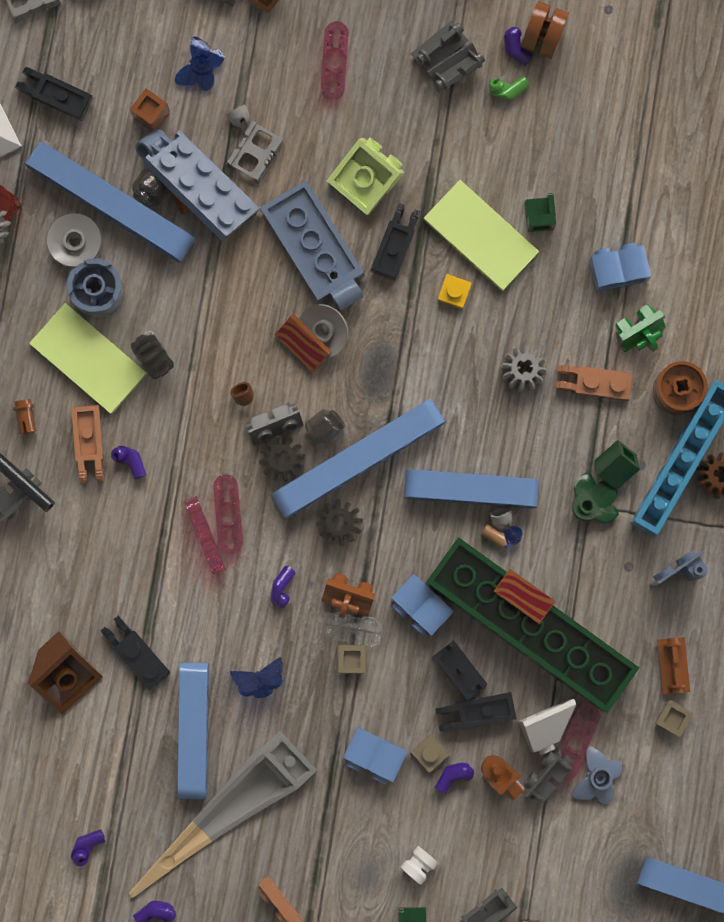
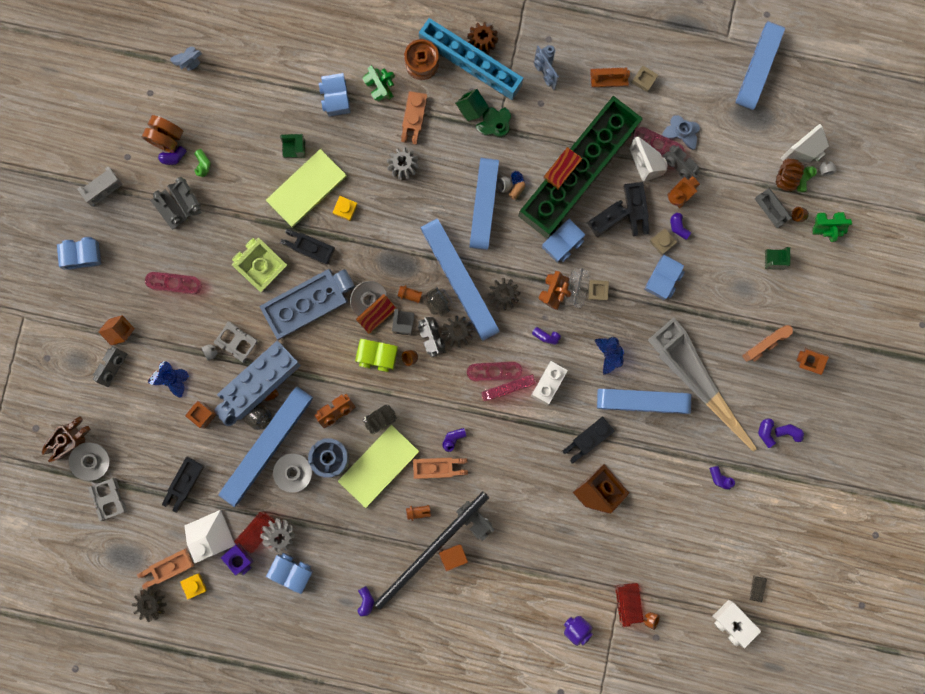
camera: 85 degrees left, 0 degrees up
(155, 283) = (328, 416): none -> dark orange hinge
(213, 591) = (549, 383): none -> white brick
(244, 346) = (376, 354): none -> lime brick
(292, 381) = (403, 322): none -> dark grey panel
(334, 389) = (409, 294): none -> dark orange pin
(419, 865) = (739, 251): white wheel -> none
(658, 57) = (187, 59): none -> sand blue animal

